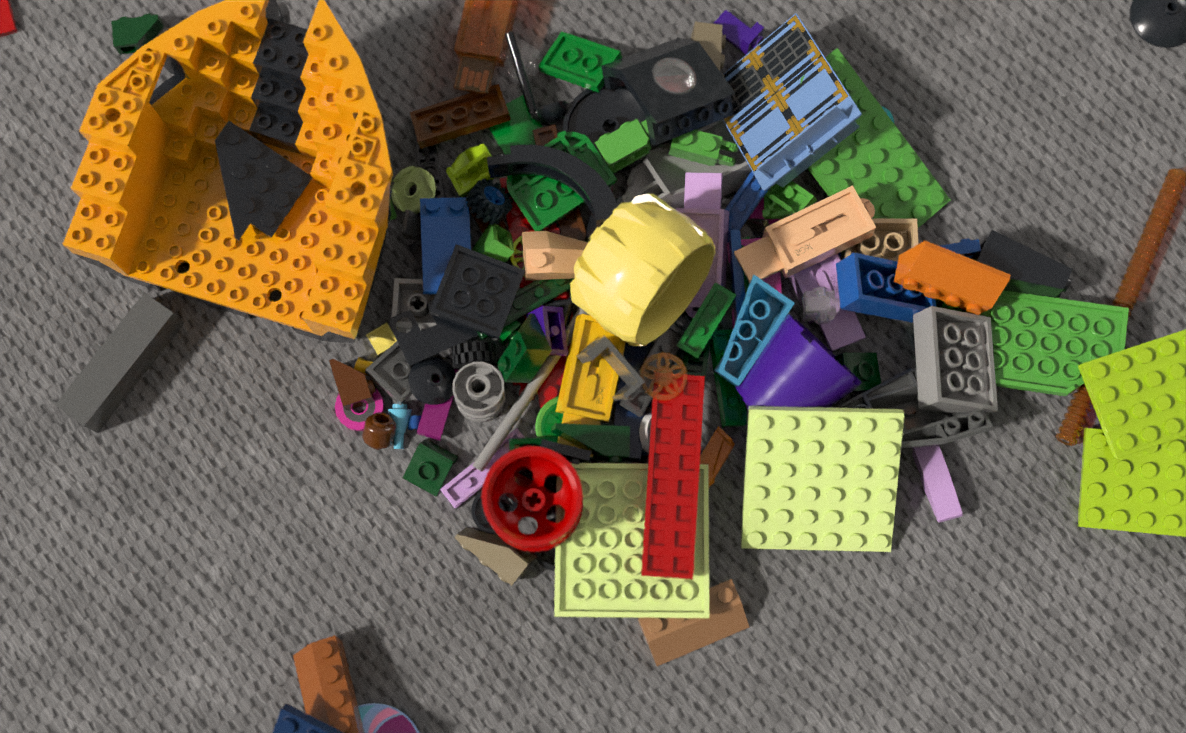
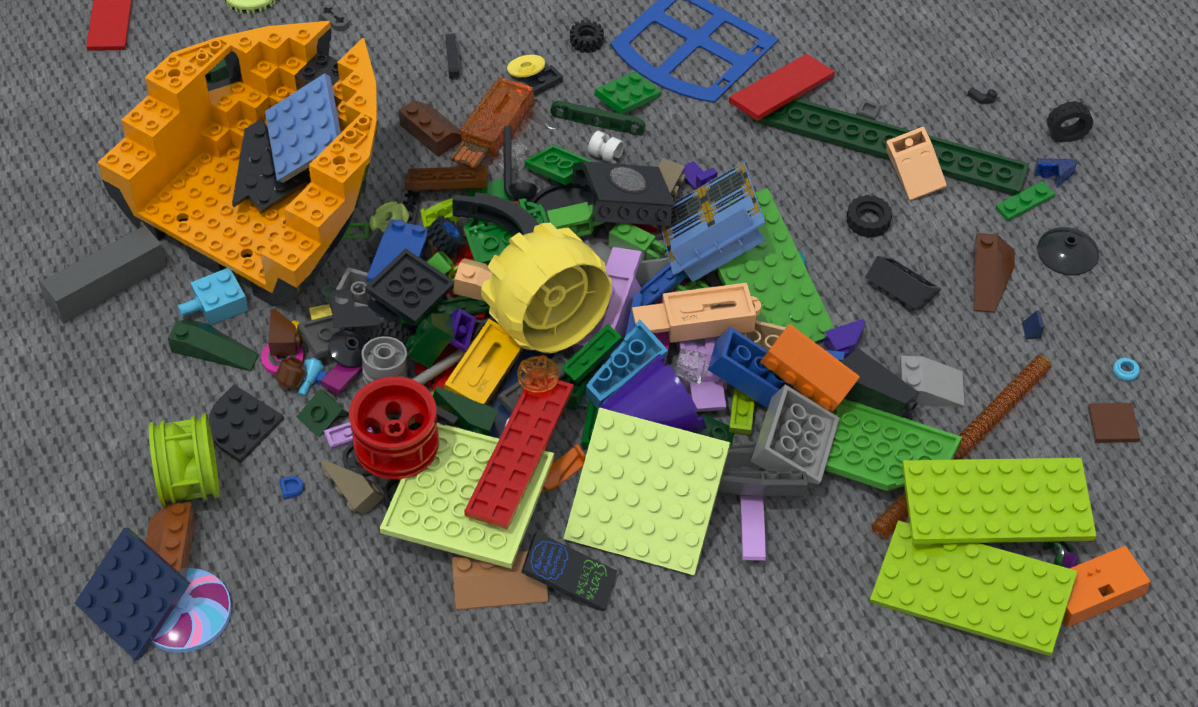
camera: 15 degrees right, 25 degrees down
(257, 353) = (216, 297): none -> medium azure brick
(267, 412) = (209, 344): none -> dark green wedge
(289, 131) = (302, 127): none -> medium blue plate
(308, 592) = (183, 460): none -> lime wheel
(345, 505) = (241, 422): none -> black plate
(382, 308) = (325, 294): none -> sand green plate
(415, 46) = (429, 127): none -> reddish brown slope
(430, 570) = (291, 487): none -> blue tile
(618, 363) = (492, 338): dark grey panel -> none
(623, 20) = (603, 146): none -> white wheel
(765, 595) = (569, 571): none -> black tile
(880, 337) = (741, 413): none -> lime plate
(947, 15) = (869, 229): none -> black tyre
(962, 209) = (844, 337): none -> dark purple slope
(1003, 113) = (901, 283): none -> black slope
(1068, 235) = (934, 381): none -> light grey slope
(1090, 63) = (991, 270): none -> reddish brown wedge
(1156, 129) = (1033, 326): none -> dark blue slope

